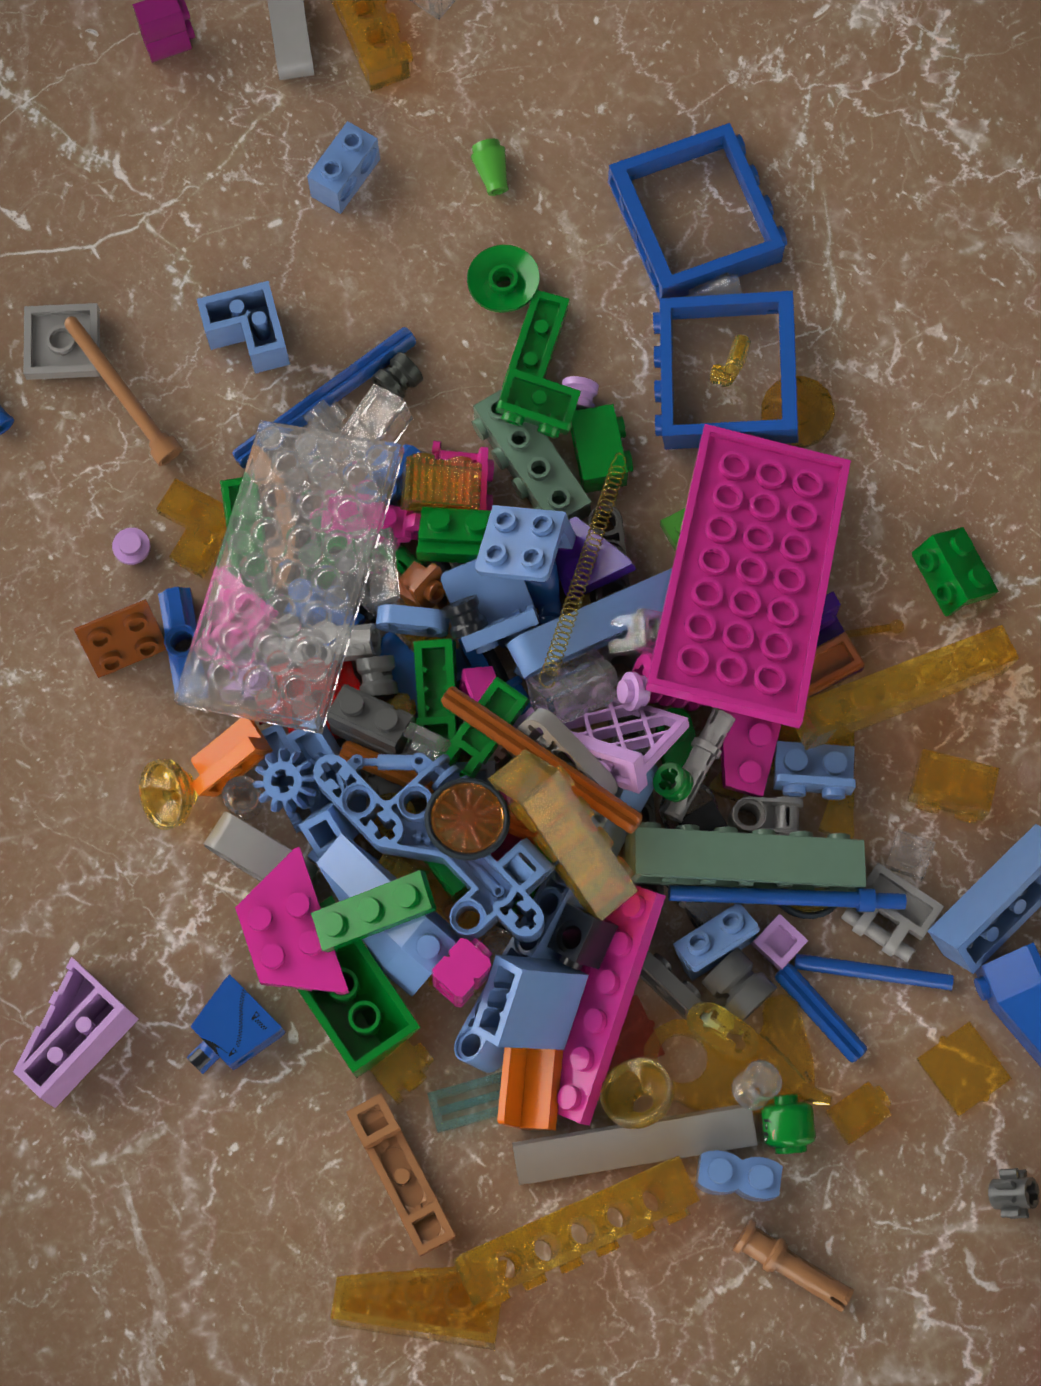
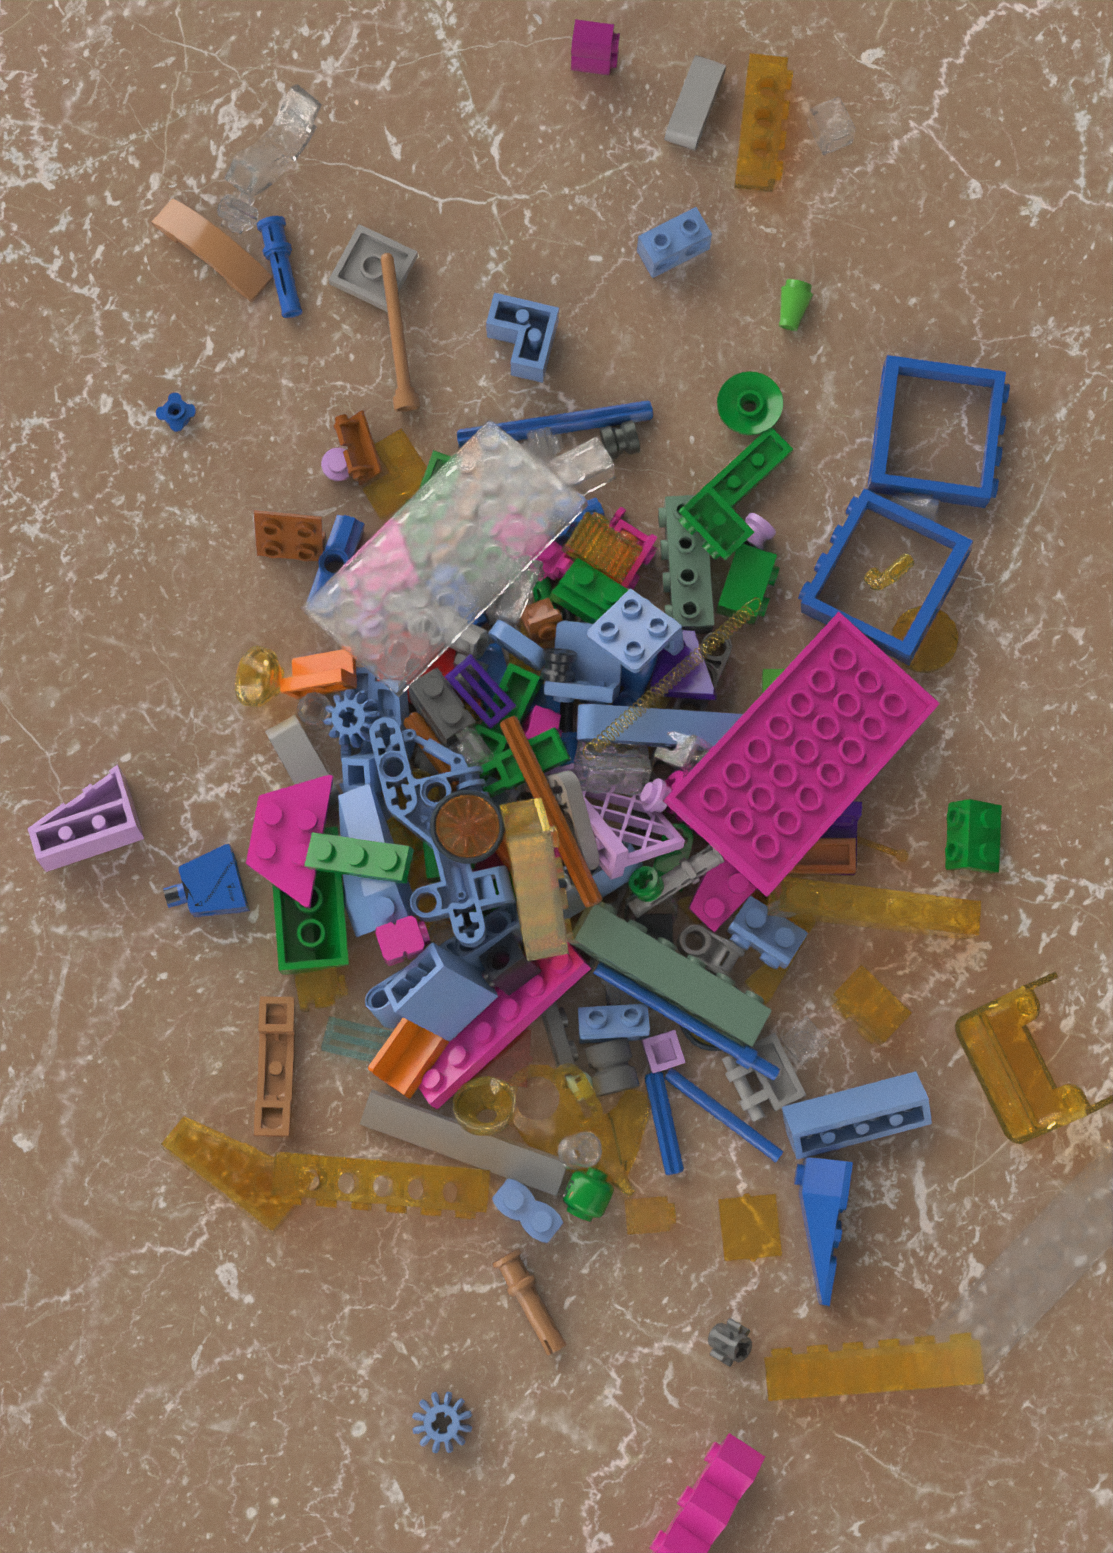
camera: 25 degrees right, 5 degrees up
(144, 517) = (361, 452): none -> dark orange hinge
(369, 672) = (460, 668): none -> dark purple tile

